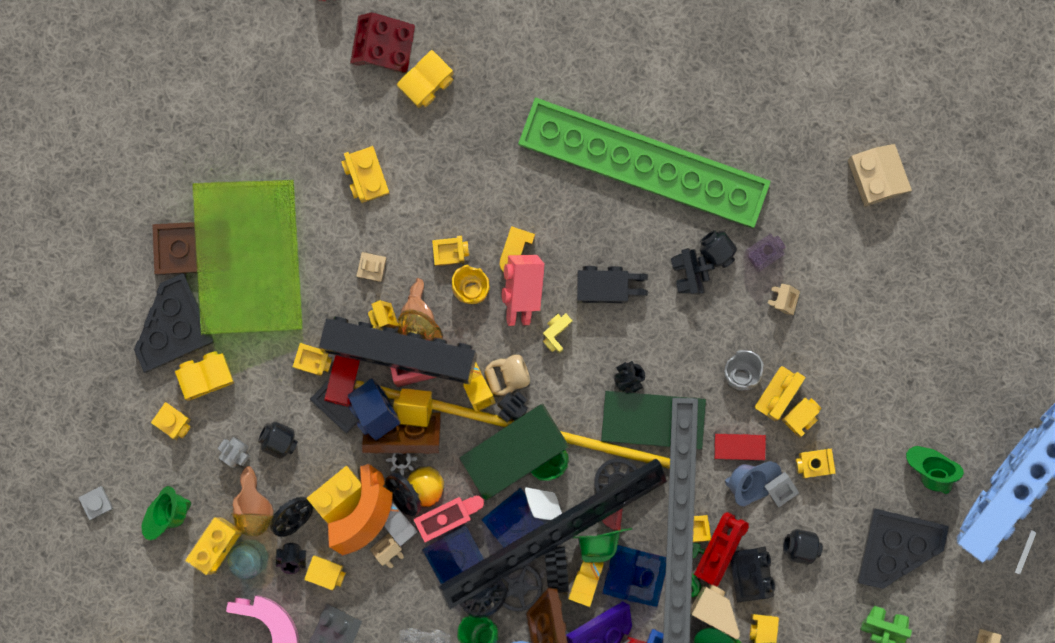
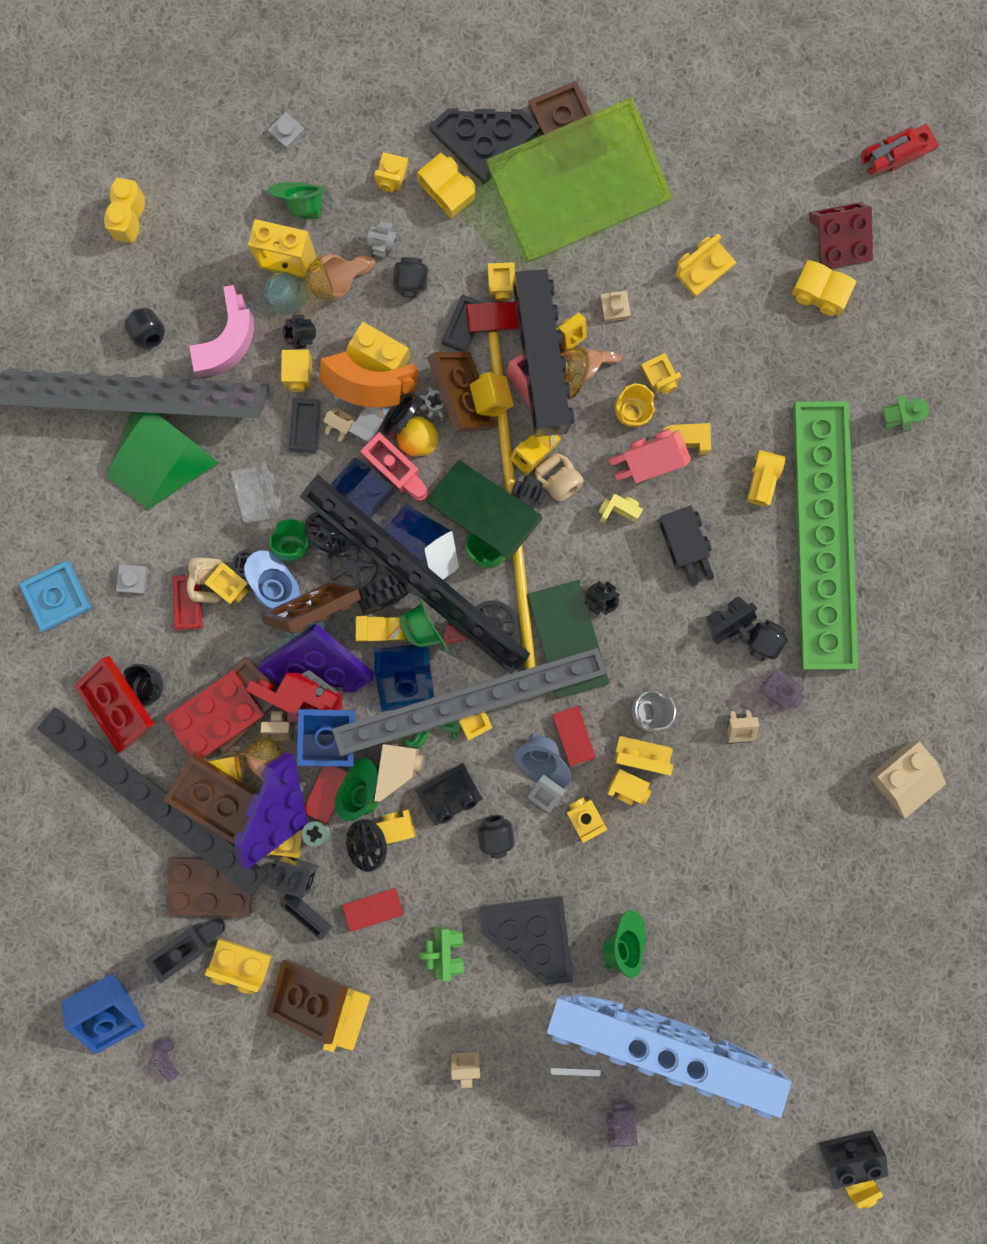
camera: 70 degrees right, 0 degrees up
(291, 516) = (338, 315): black wheel -> none
(373, 410) = (473, 353): dark blue brick -> none
(376, 584) = (304, 425): none -> black tile
(565, 53) = (905, 413): none -> bright green hips
(574, 195) = (765, 474): none -> yellow piece
(721, 549) = (463, 753): red plate -> none

